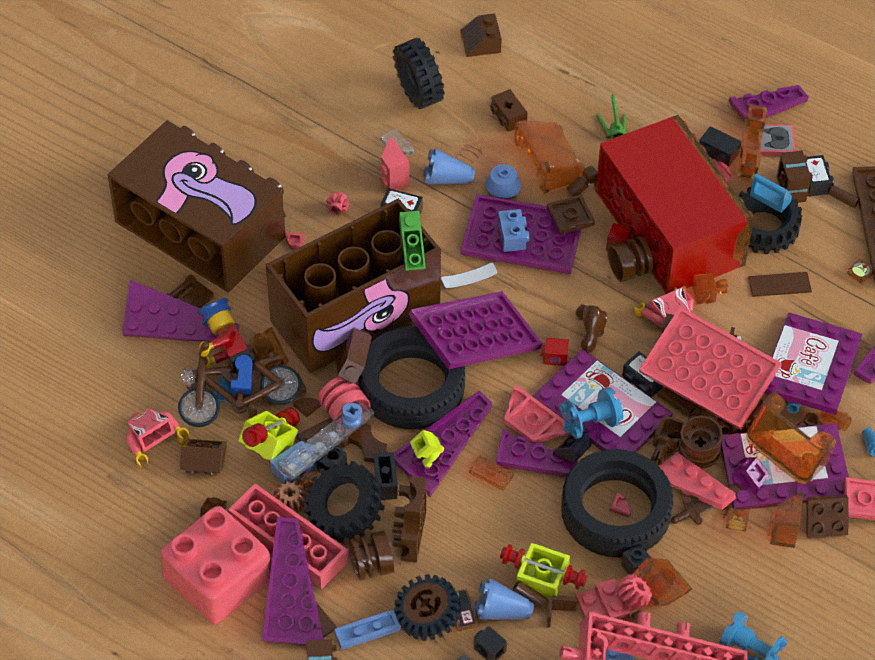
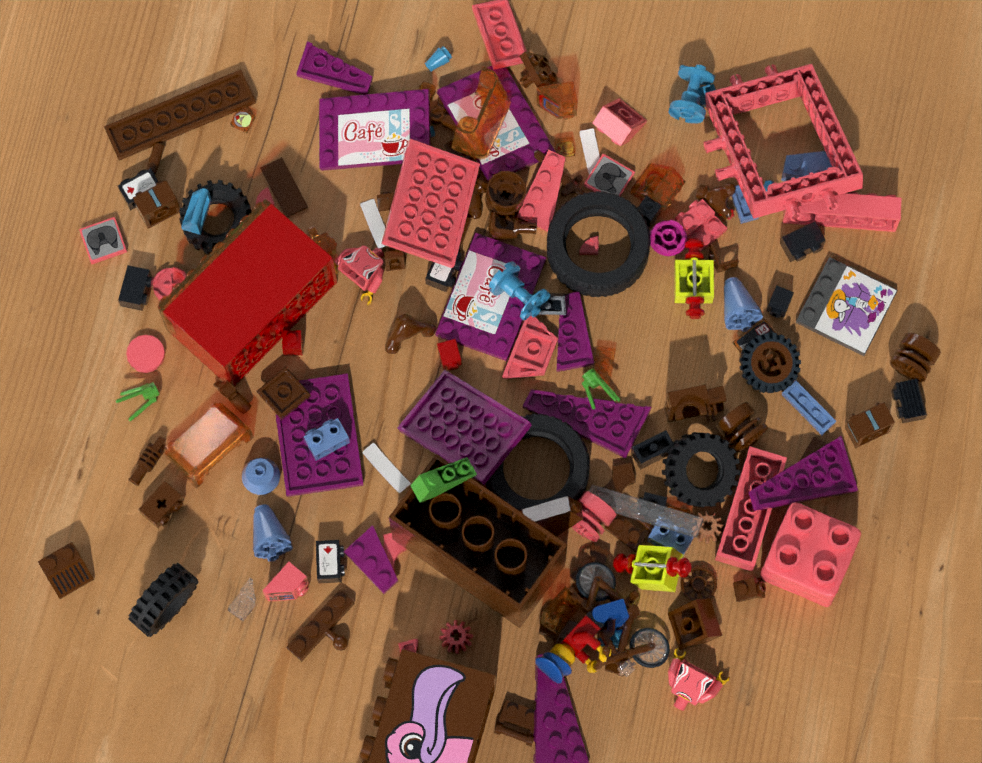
camera: 110 degrees left, 20 degrees up
(239, 475) = (699, 583): none -> reddish brown wheel
(337, 203) = (350, 624): coral gear -> none
(348, 185) = (321, 626): none -> reddish brown plate
(351, 415) = (614, 499): medium blue wheel -> none
(426, 446) = (613, 421): neon yellow piece -> none
(477, 449) = (593, 379): none -> bright green plant
(529, 593) = (719, 291): reddish brown hinge -> none
(553, 113) = (147, 460): none -> reddish brown hinge
(598, 562) = (668, 238): none -> dark pink cone
(630, 258) = (318, 320): reddish brown wheel -> none
(634, 592) = (686, 198): coral gear -> none
(687, 545) = (609, 176): none -> tile
(718, 541) = (590, 148): none -> white sticker
(747, 573) = (619, 121): none -> coral slope
(751, 141) = (144, 253): clear orange arch -> none
(753, 471) = (520, 143): magenta bracket -> none
(771, 263) = (265, 194): none -> coral tile
(775, 101) = (59, 262): magenta wing -> none

